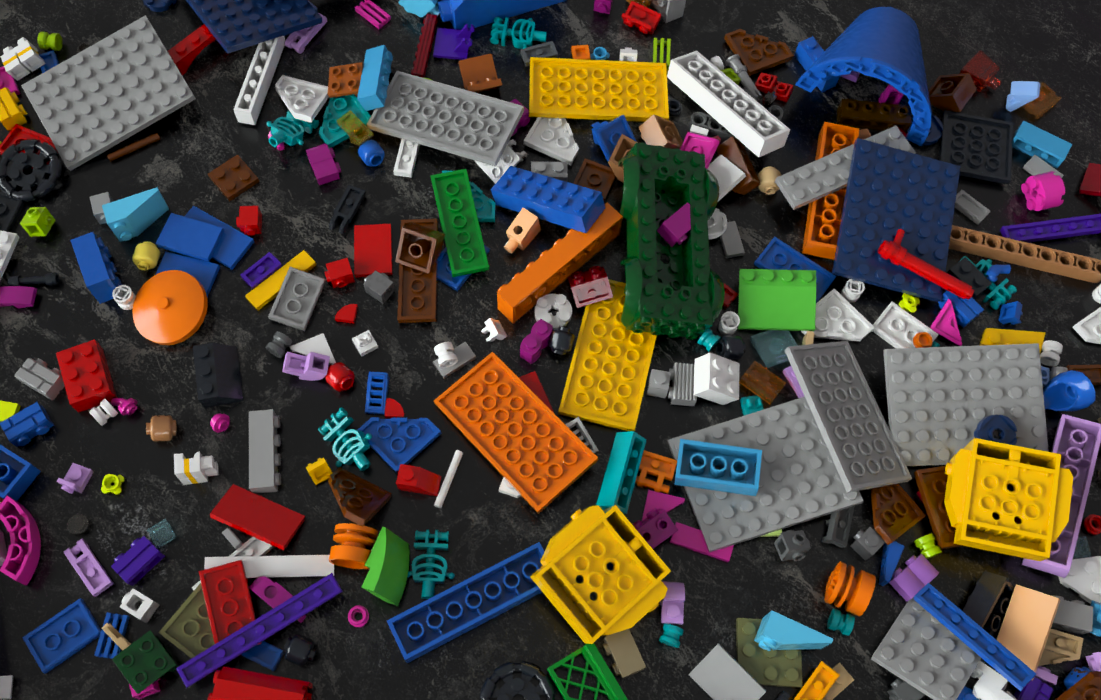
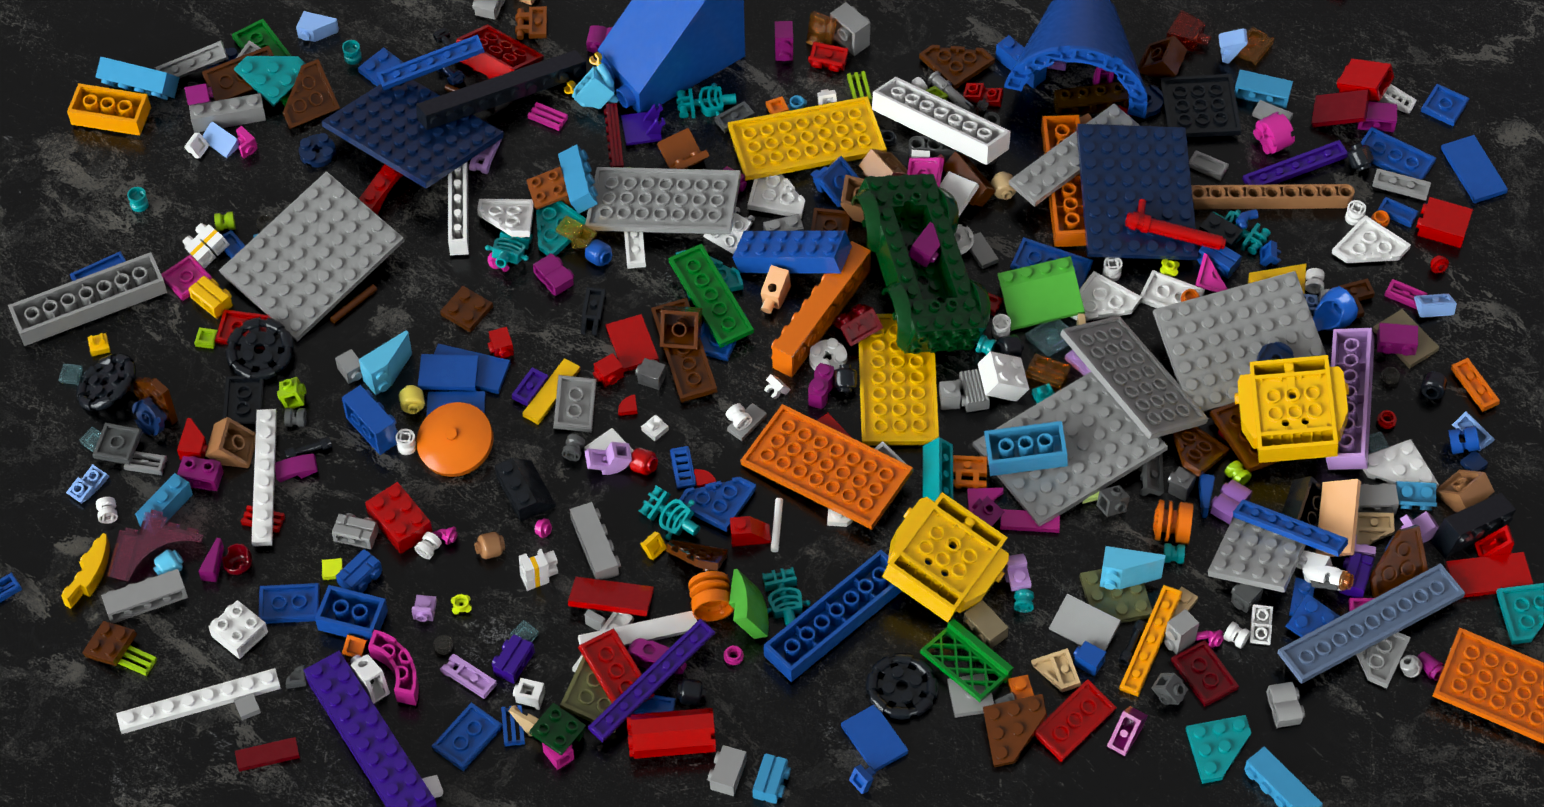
camera: 10 degrees left, 10 degrees down
(37, 247) = (295, 417): none -> dark grey wheel

